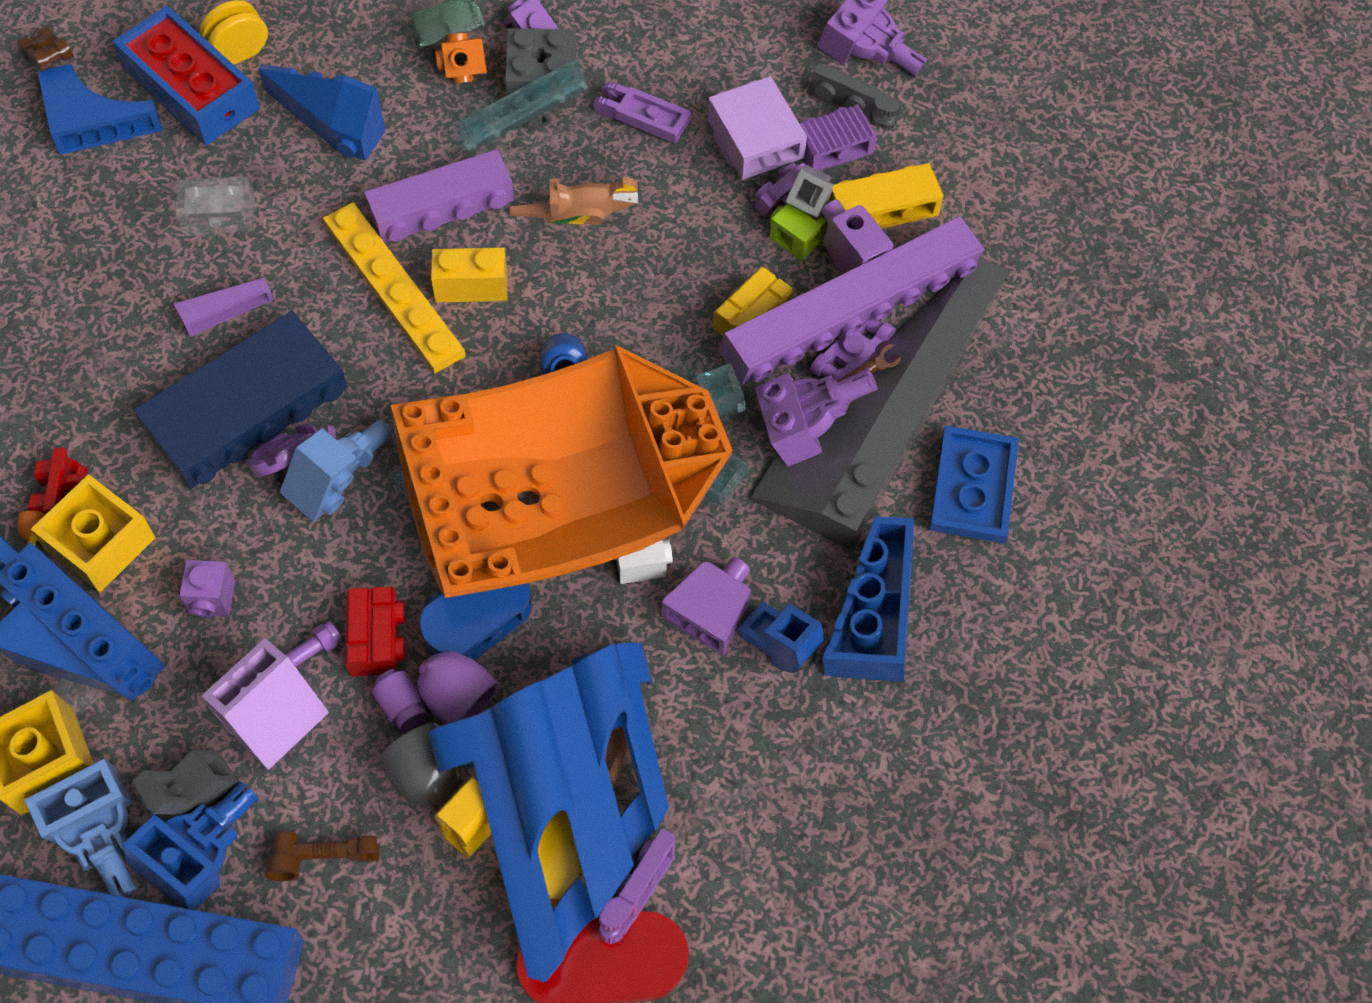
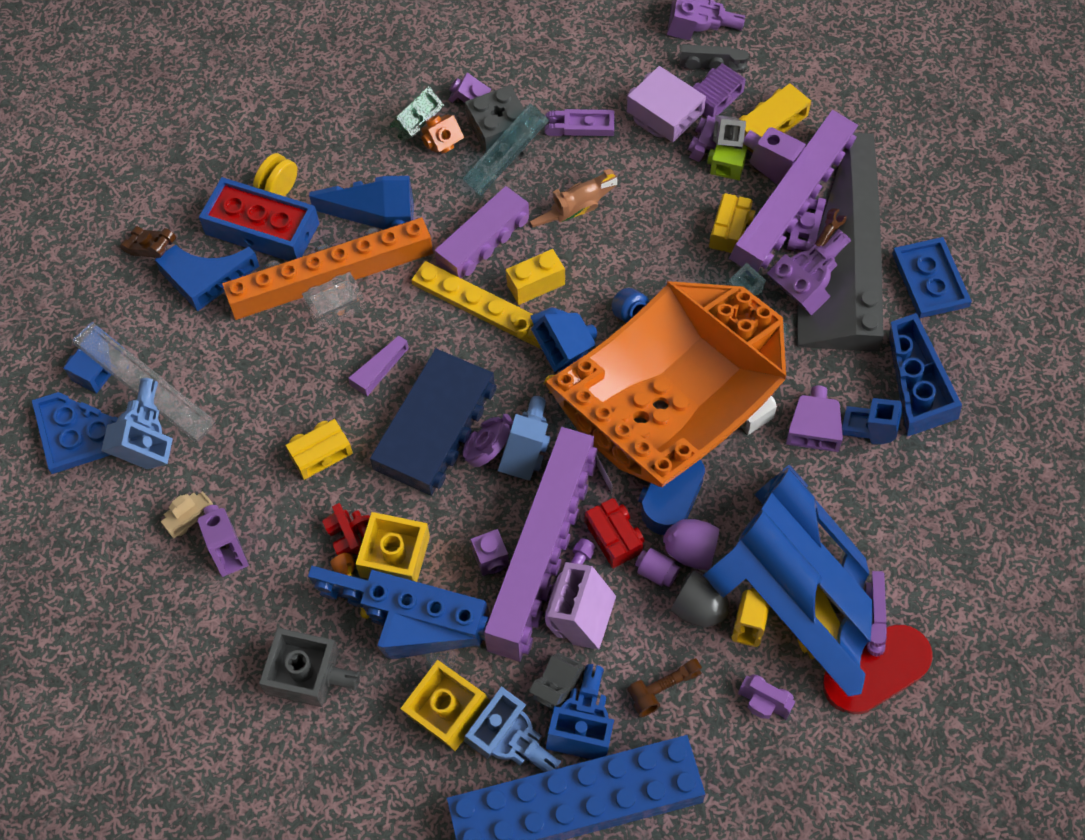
camera: 20 degrees left, 0 degrees up
(88, 373) = (318, 448): none -> yellow brick
(268, 601) = (540, 545): none -> medium lavender brick
(271, 165) = (360, 257): none -> orange piece
(407, 546) = (604, 474): none -> sticker
(433, 930) = (766, 698): none -> medium lavender piece
(451, 357) = (560, 336): none -> blue torso

